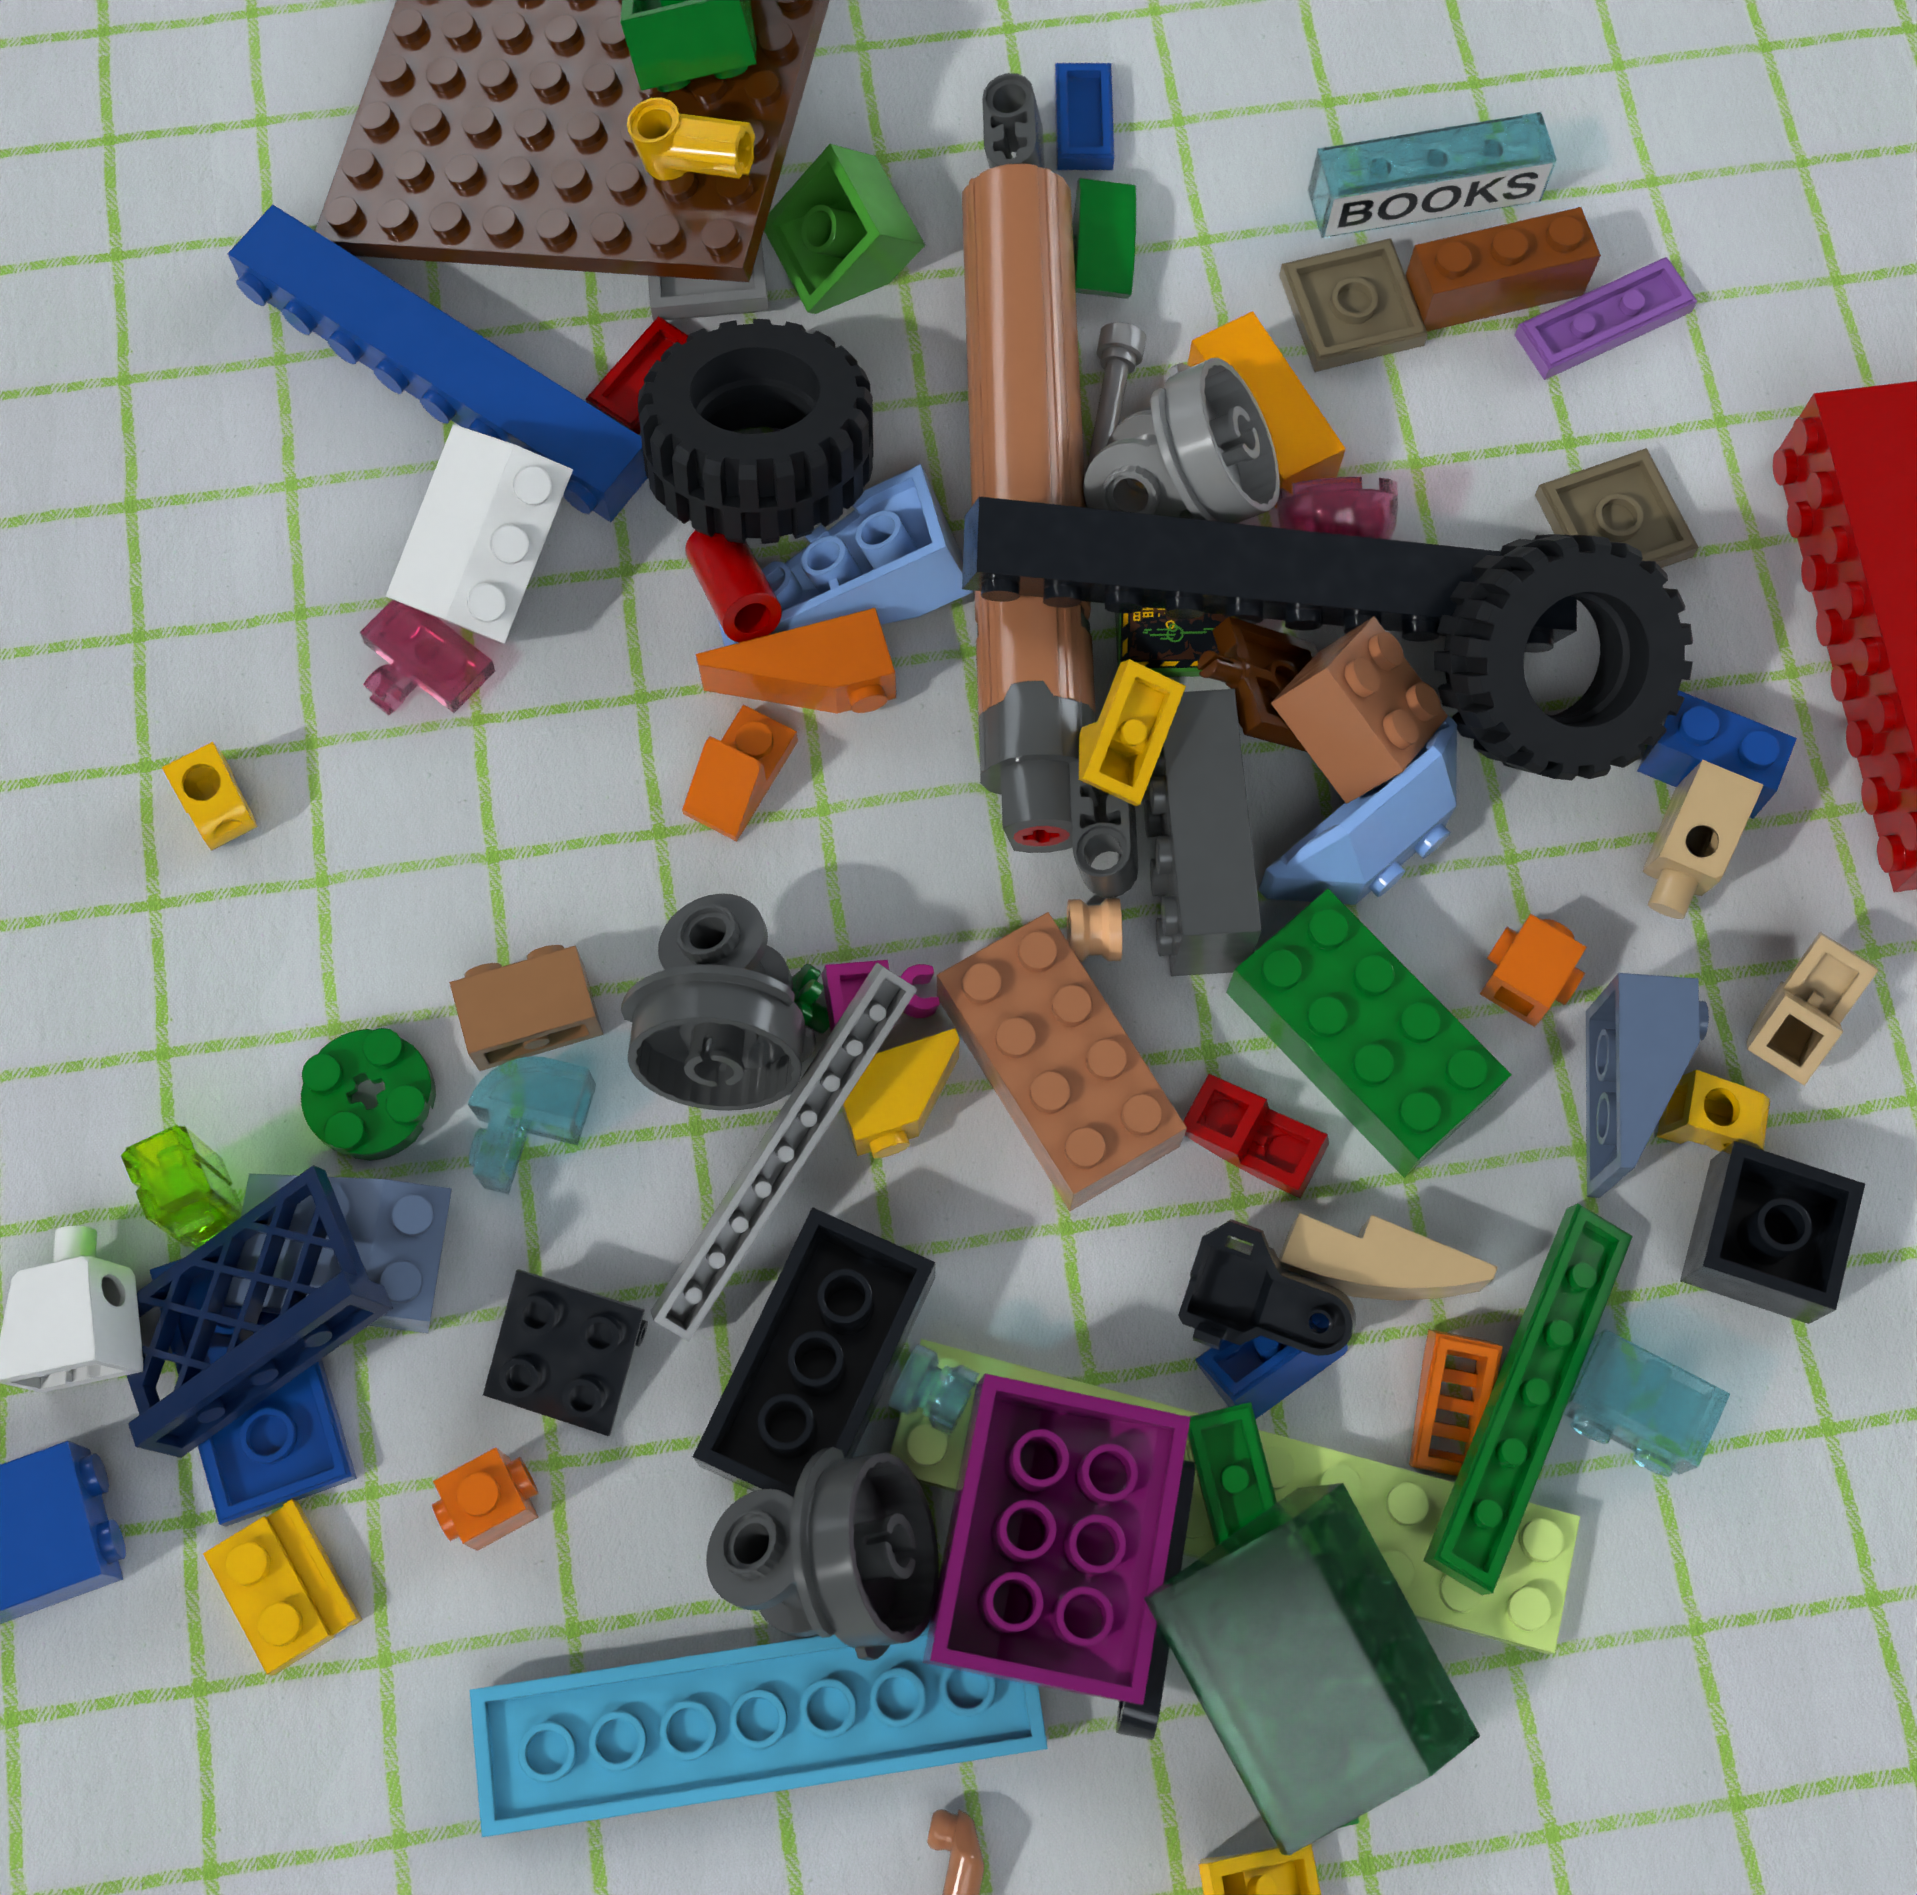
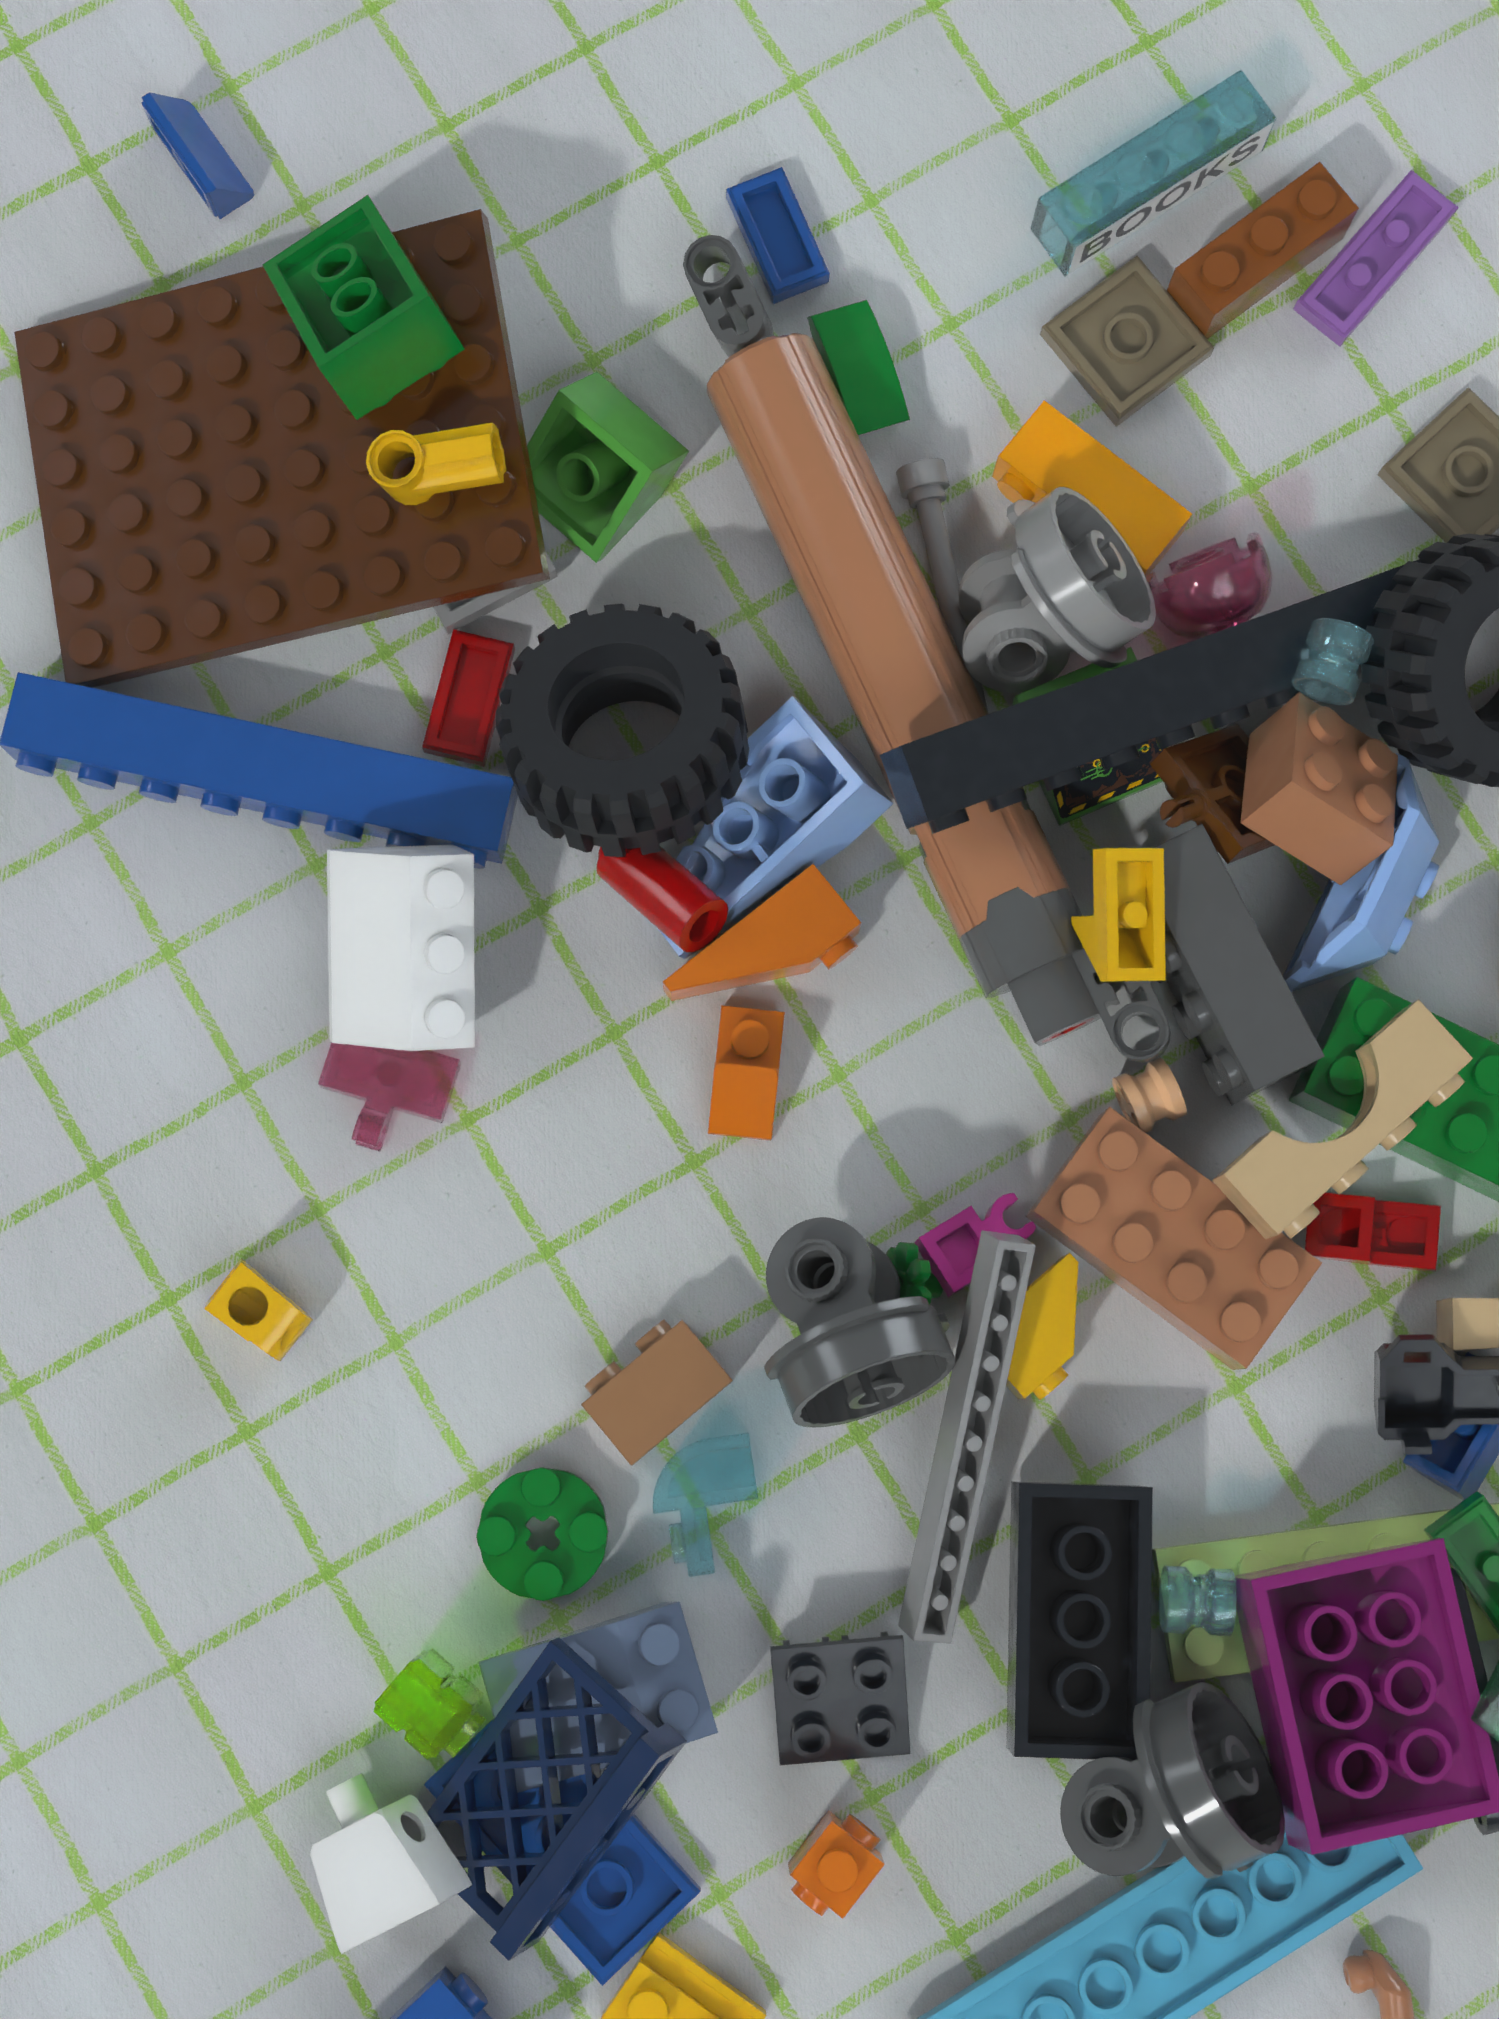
camera: 25 degrees left, 10 degrees up
(1177, 1024) = (1401, 1070): none -> tan arch
(1417, 591) = (1333, 659): none -> clear light blue wheel

